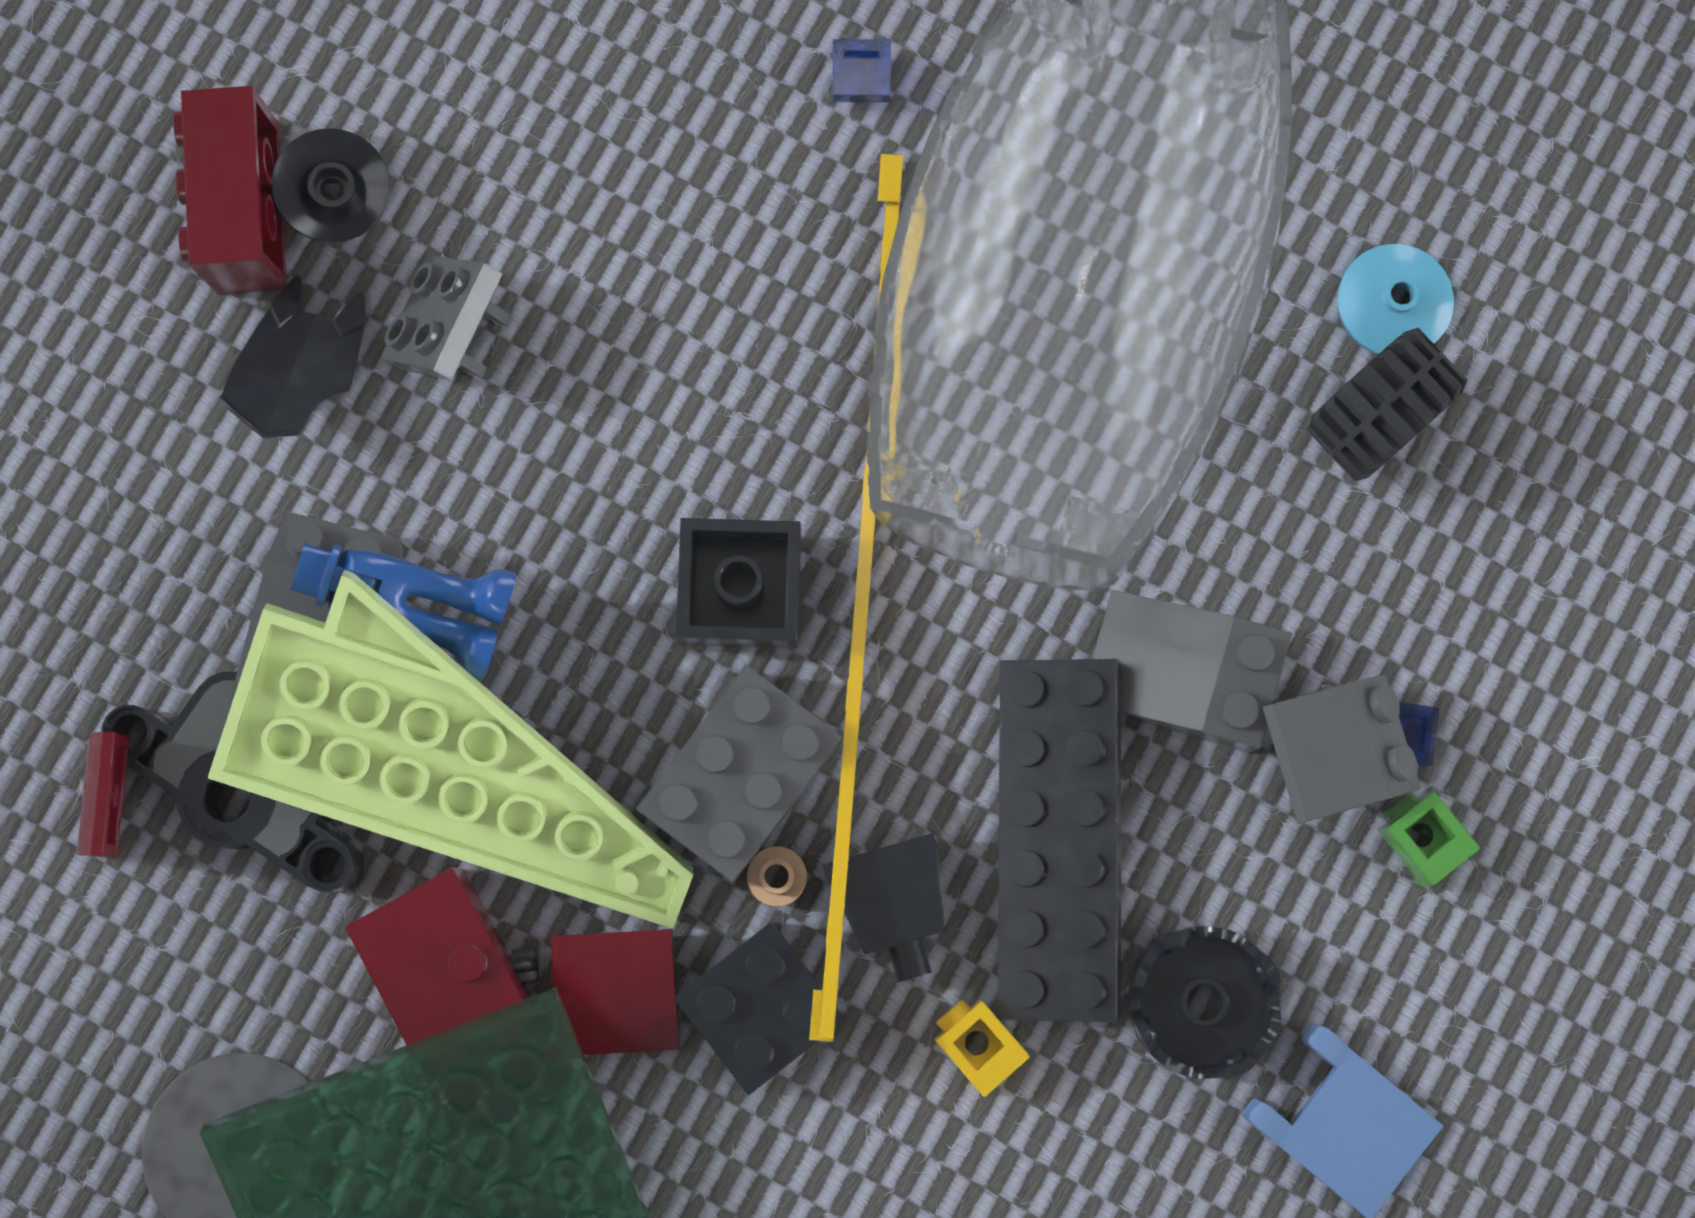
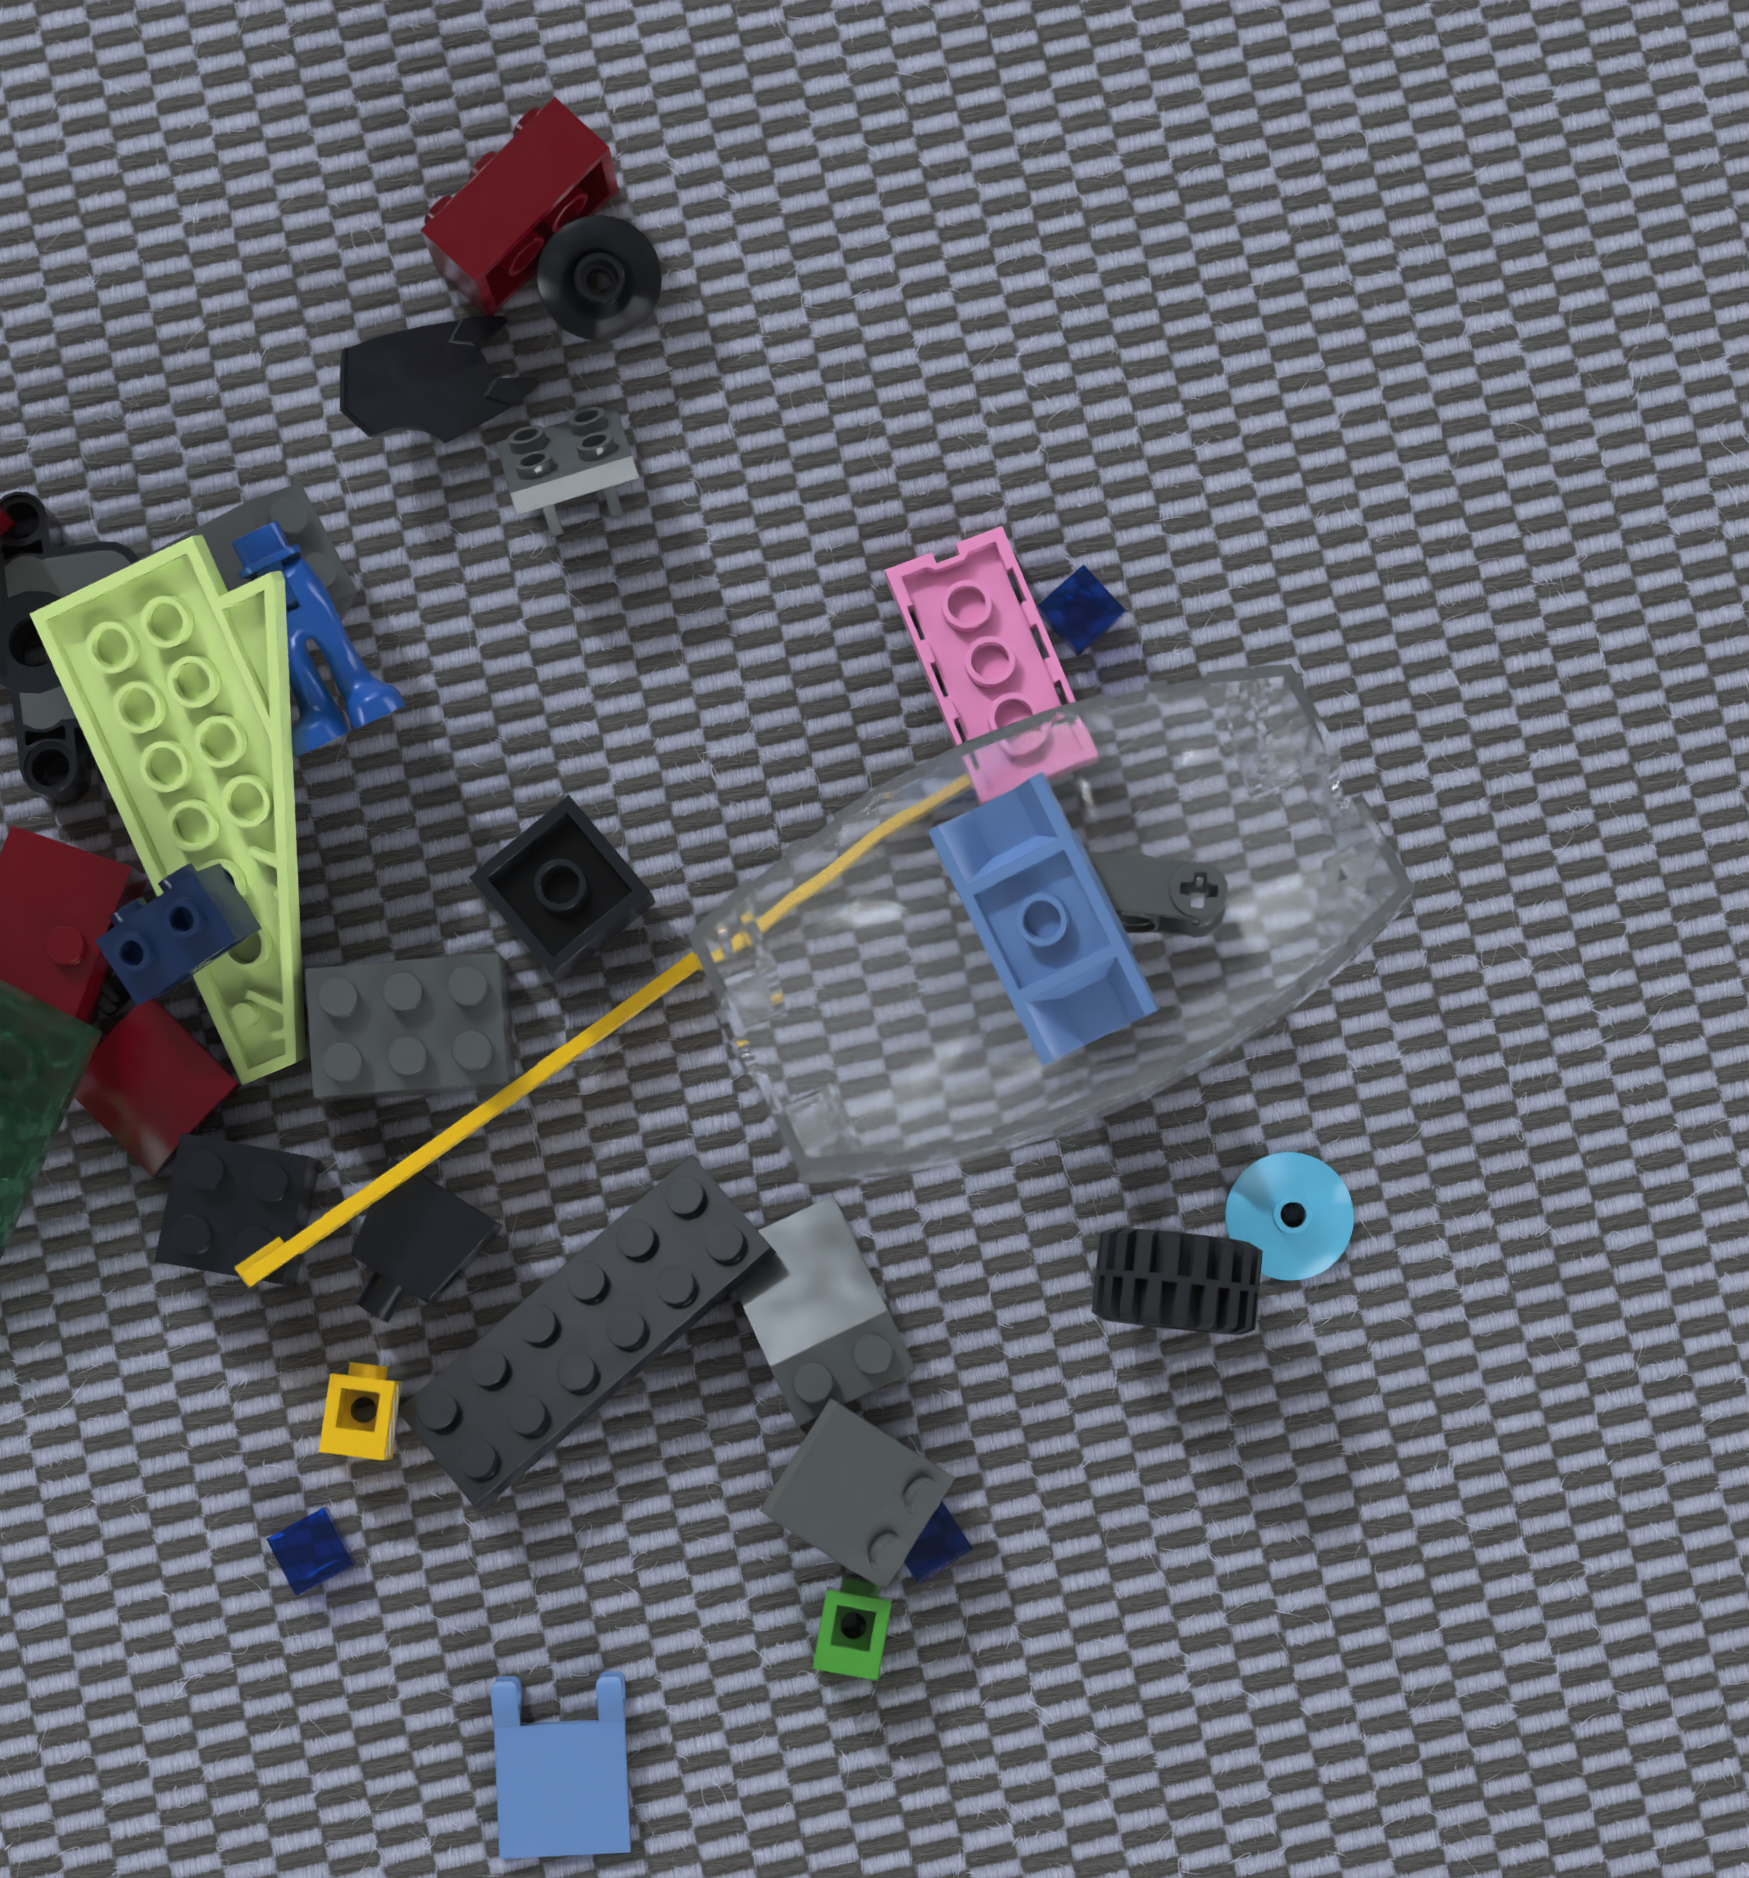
camera: 50 degrees right, 0 degrees up
(530, 876) = (177, 932): none -> dark blue brick
(794, 885) = (371, 1145): light nougat plate -> none
(821, 156) = (978, 636): none -> bright pink piece
(1042, 1166) = (311, 1551): none -> clear blue tile
(1065, 266) = (1044, 919): none -> medium blue piece
(1094, 199) = (1157, 893): none -> dark grey piece
(1246, 1012) = (509, 1575): black plate -> none

